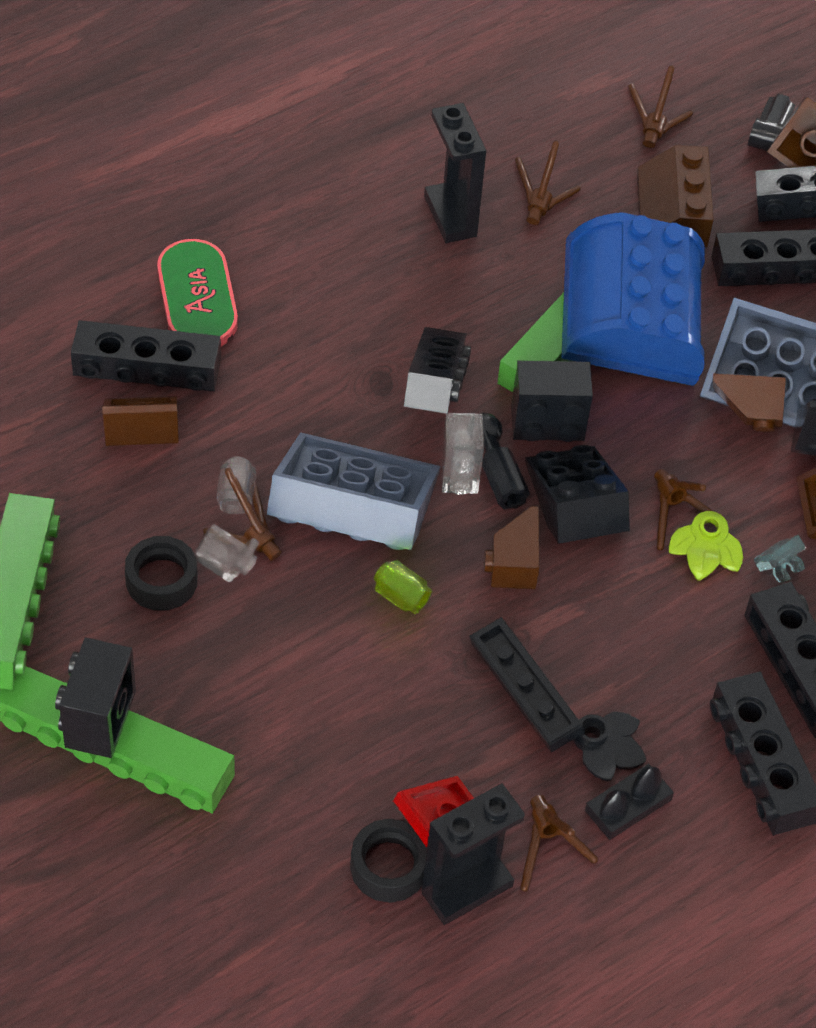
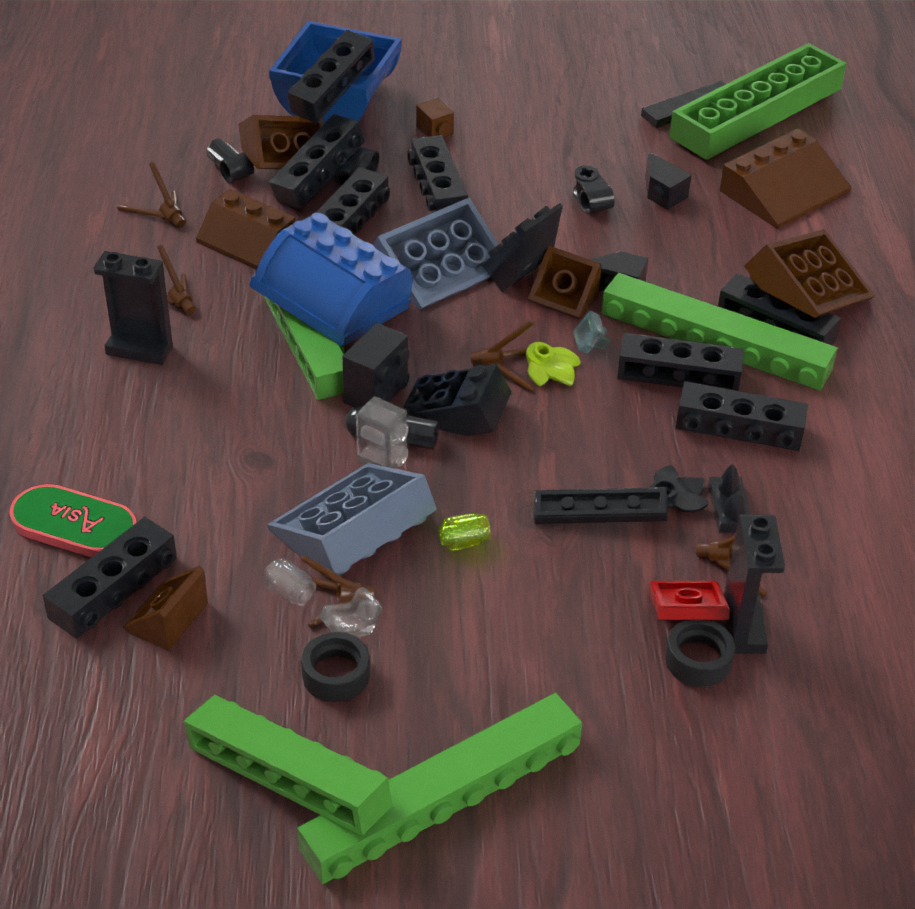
camera: 55 degrees left, 10 degrees down
(96, 697) = (461, 738): black brick -> none
(437, 370) = (302, 407): black brick -> none
(515, 553) = (485, 455): reddish brown slope -> none
(753, 398) = (457, 279): reddish brown slope -> none

